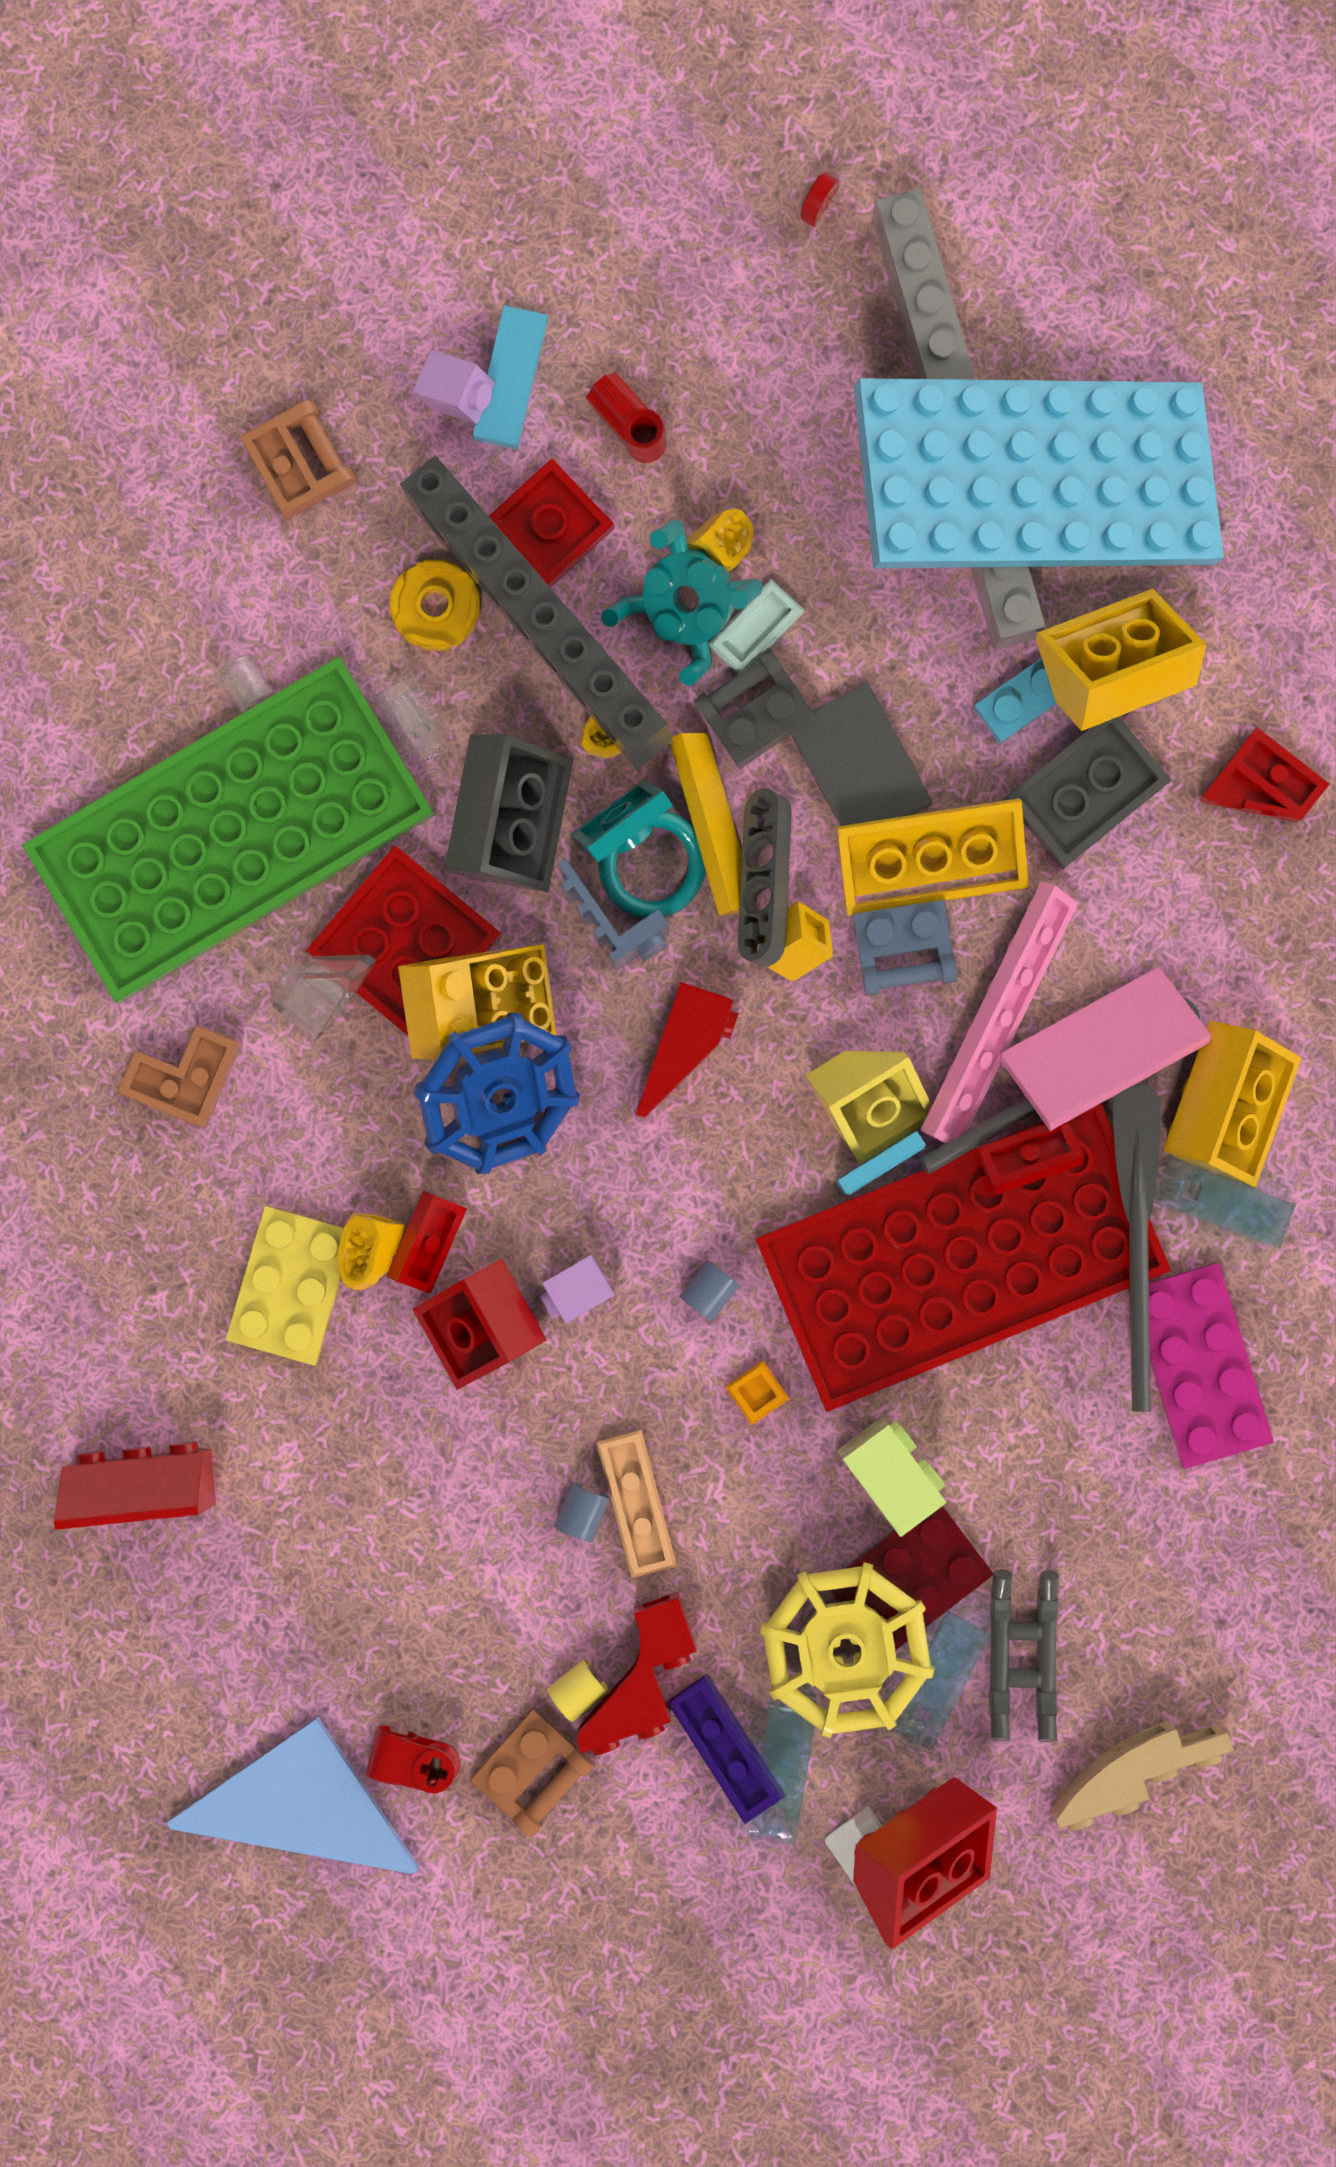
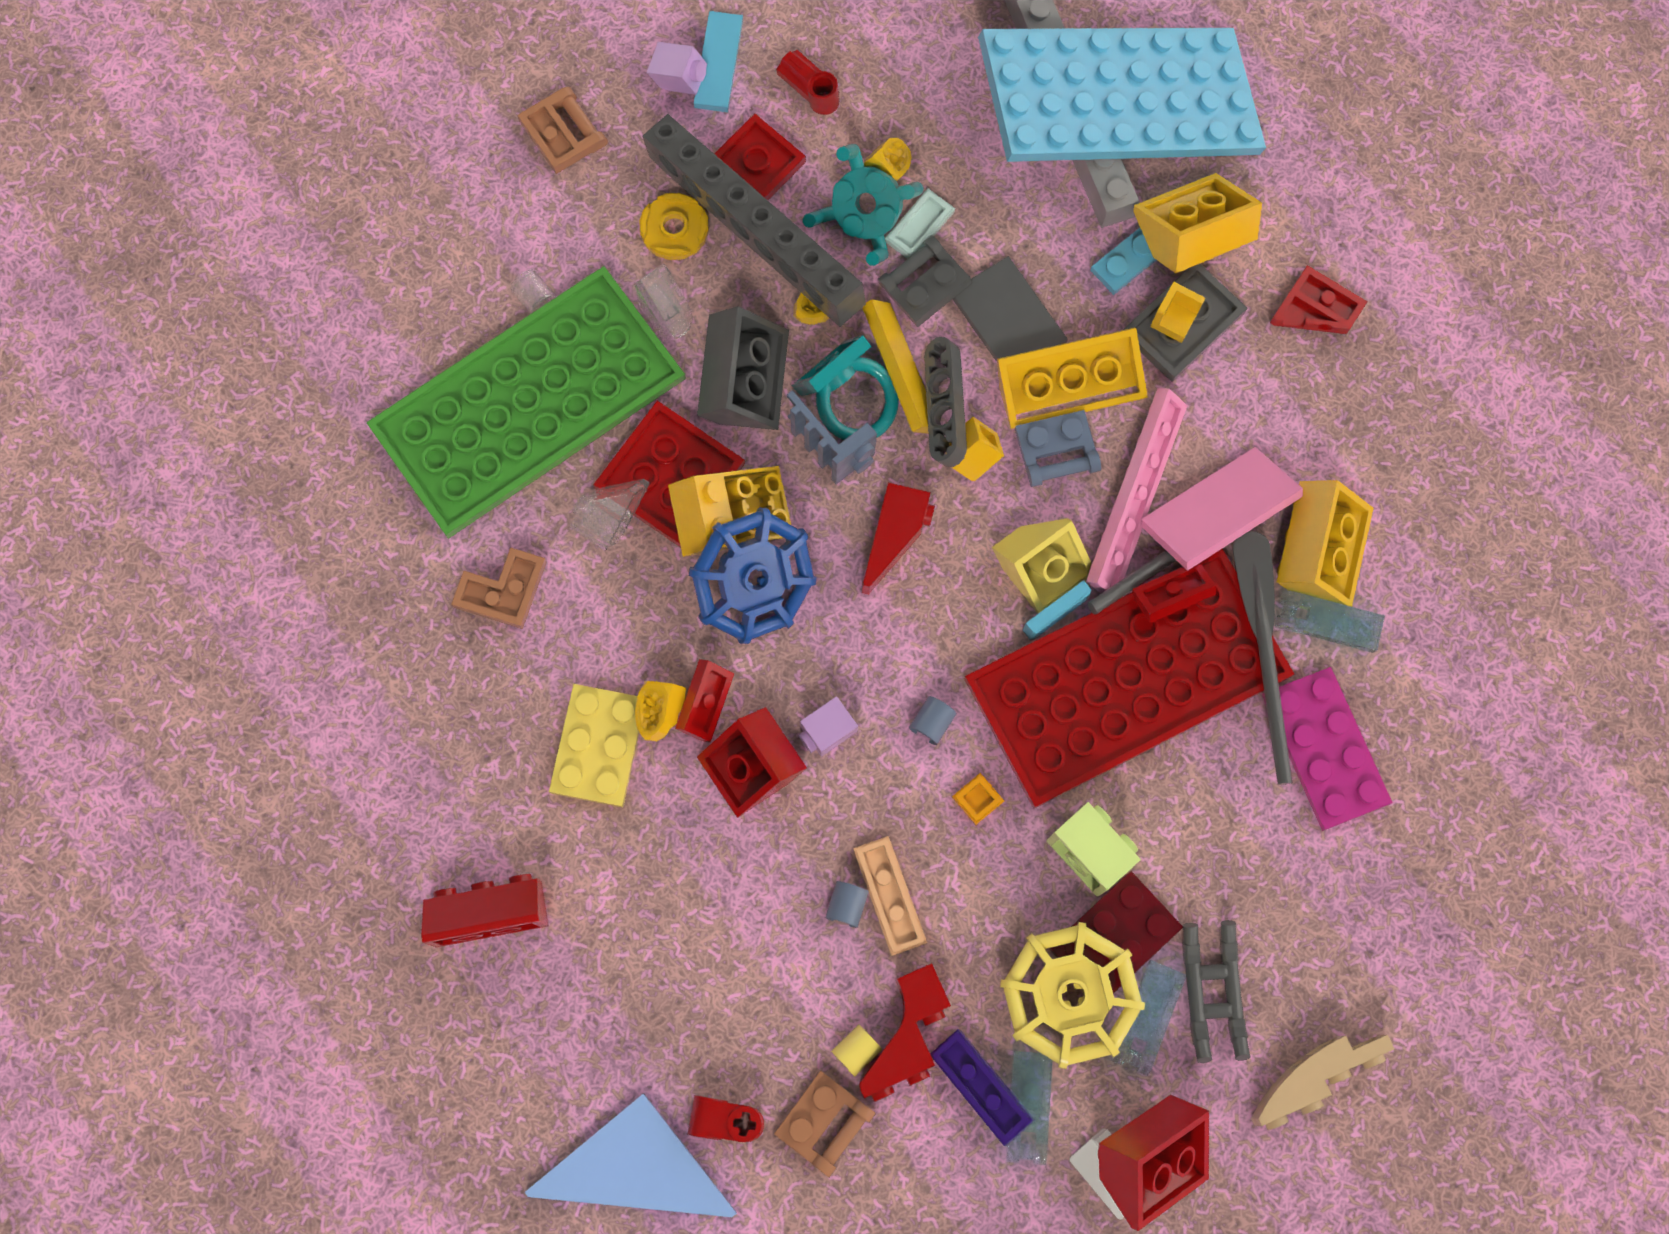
camera: 10 degrees left, 10 degrees down
(1077, 784) = (1177, 312): none -> yellow panel

